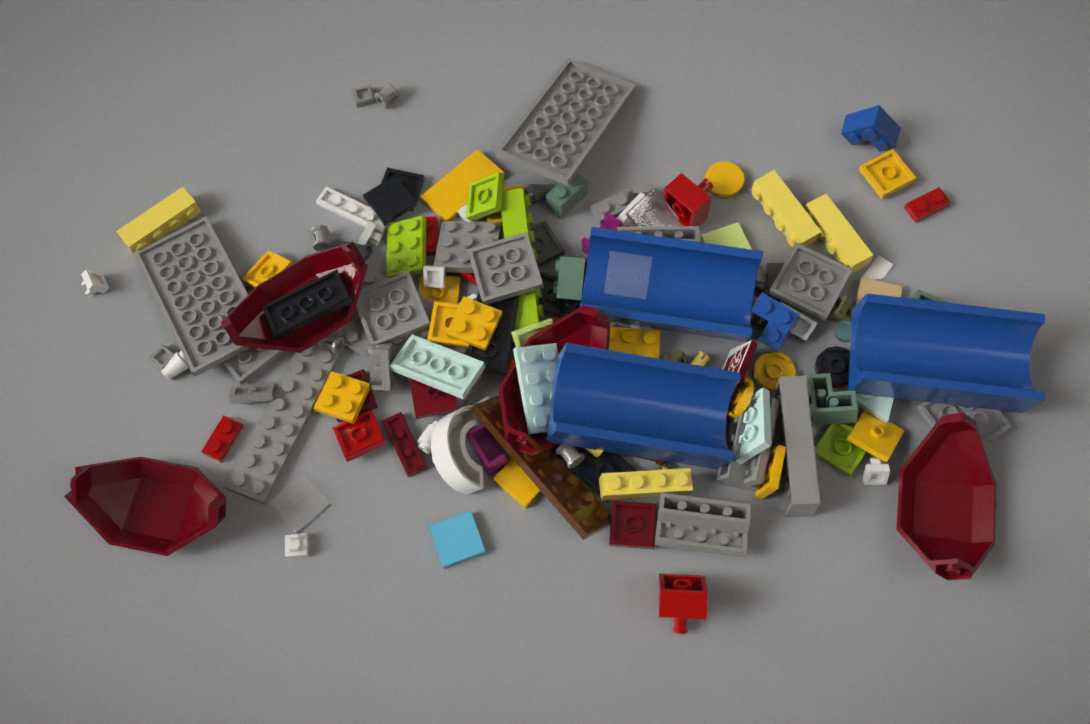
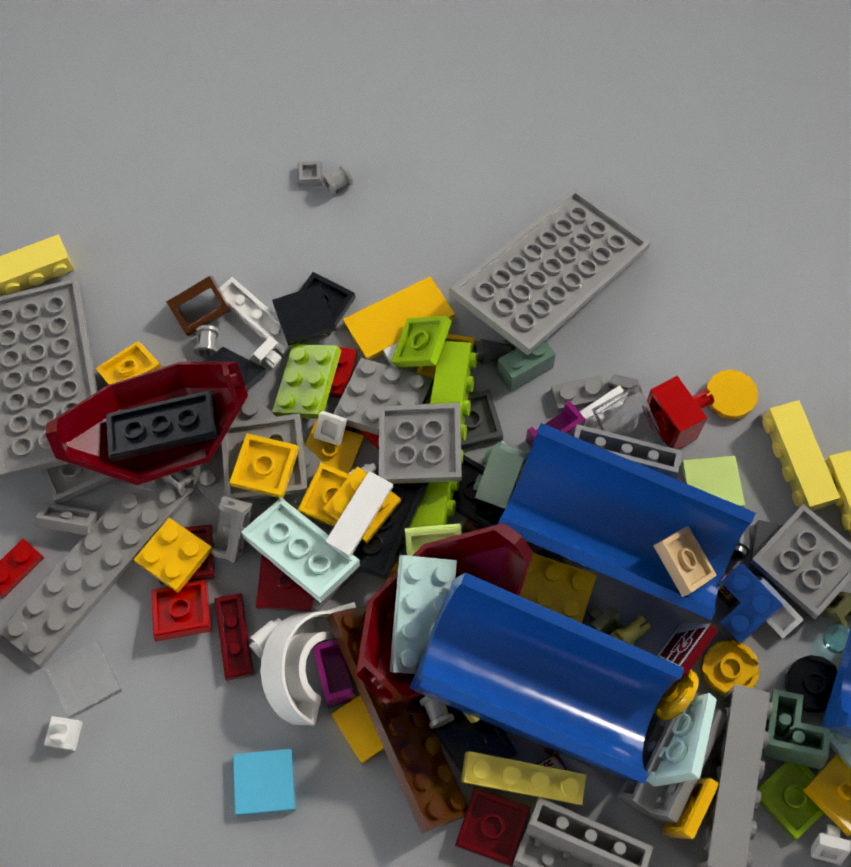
camera: 10 degrees right, 0 degrees up
(299, 204) = (190, 293): none -> reddish brown tile
(393, 314) = (264, 465): none -> yellow tile
(475, 328) = (359, 514): none -> white tile
(627, 275) = (572, 494): clear tile -> none
(721, 300) = (685, 561): none -> tan tile

